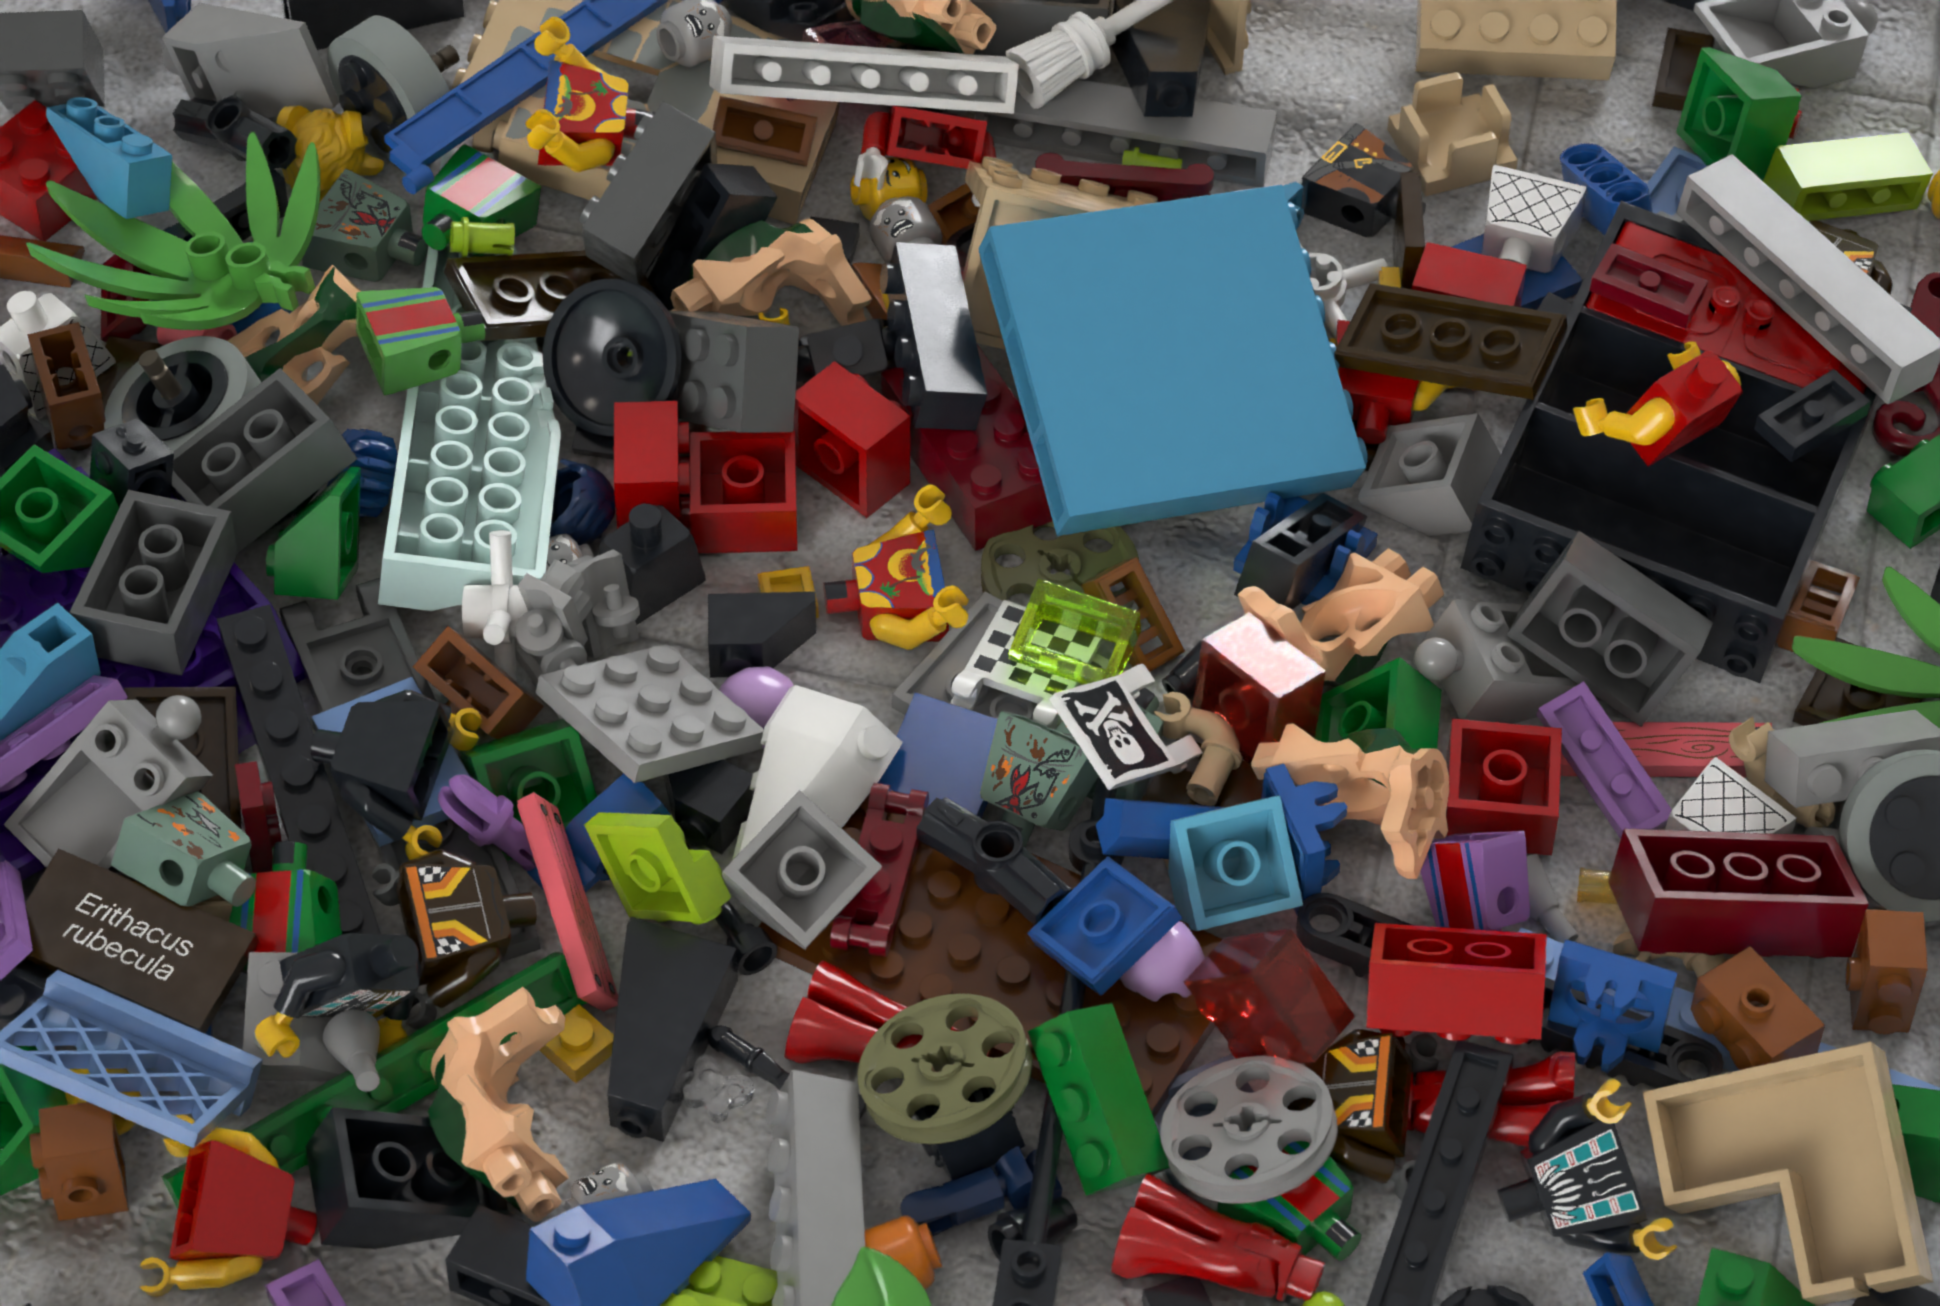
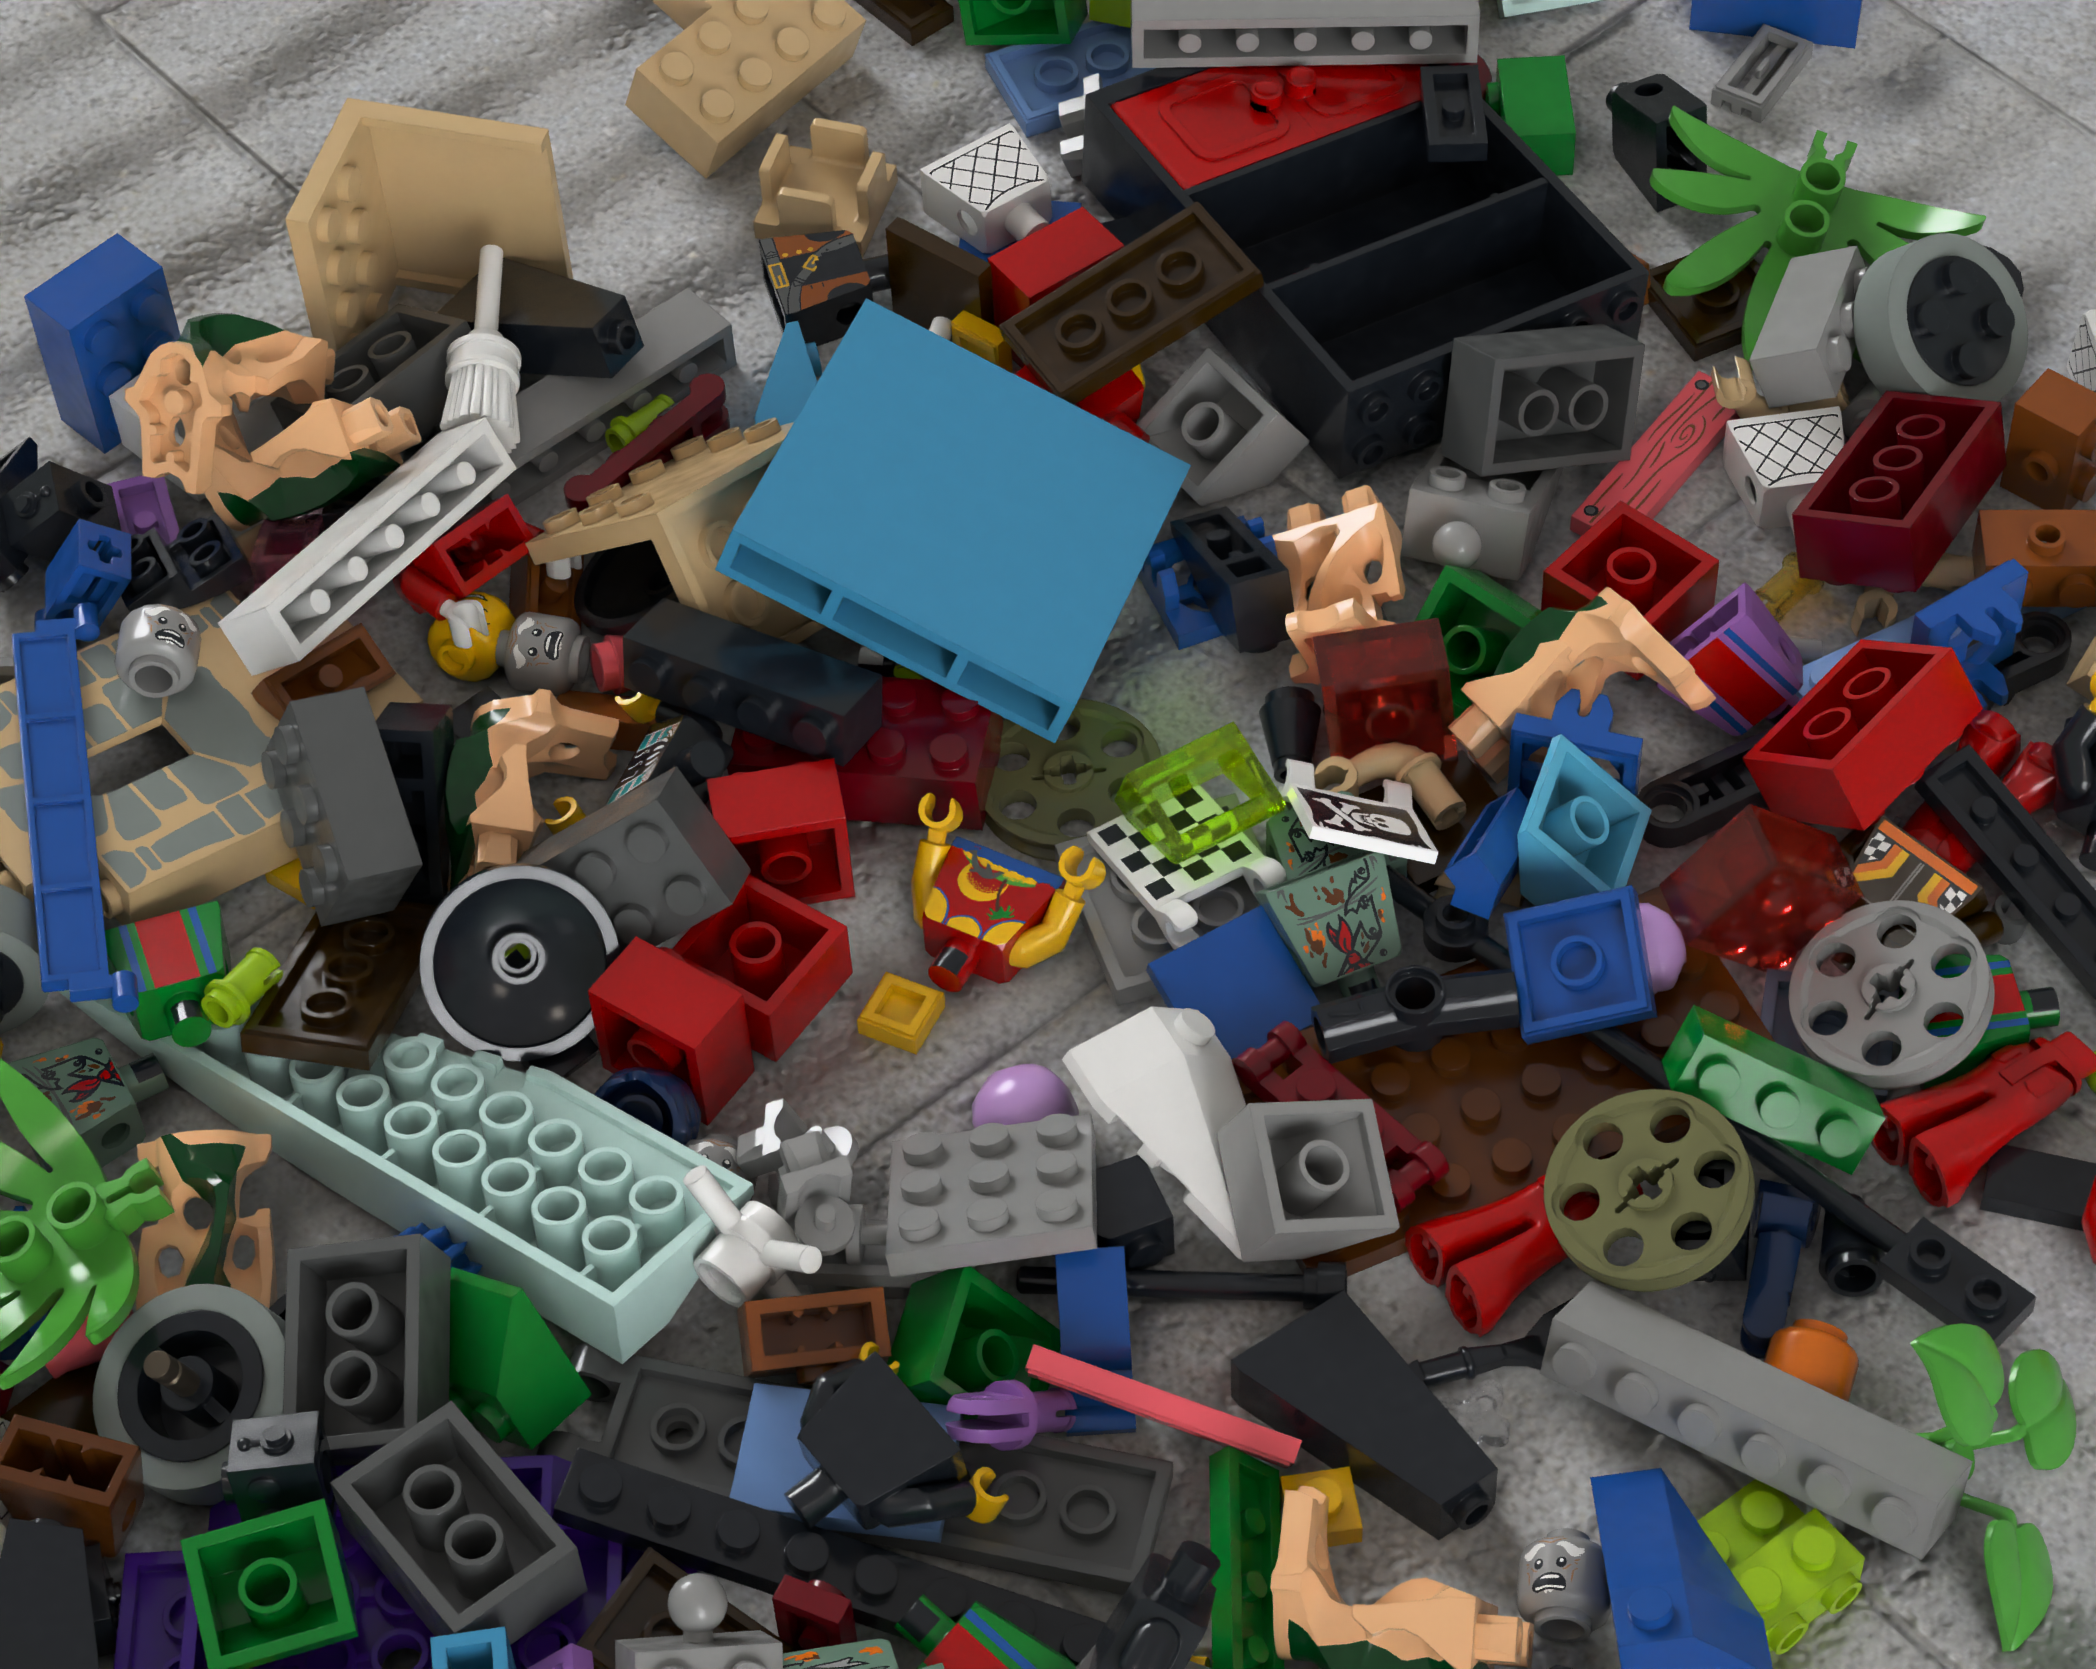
camera: 50 degrees left, 0 degrees up
(413, 335) = (322, 1120): bright green torso -> none
(455, 920) = (1105, 1509): dark brown torso -> none
(582, 107) = (175, 798): torso -> none
(655, 868) = (1203, 1297): lime plate -> none
(656, 557) = (774, 1067): black torso -> none
(757, 629) = (931, 1064): black slope -> none
(1141, 591) = (1159, 727): dark orange slope -> none
(1605, 762) = (1690, 507): medium lavender plate -> none
(1606, 183) = (1043, 112): blue beam -> none
(1648, 285) = (1215, 127): dark red plate -> none
(1673, 409) = (1384, 184): red torso -> none

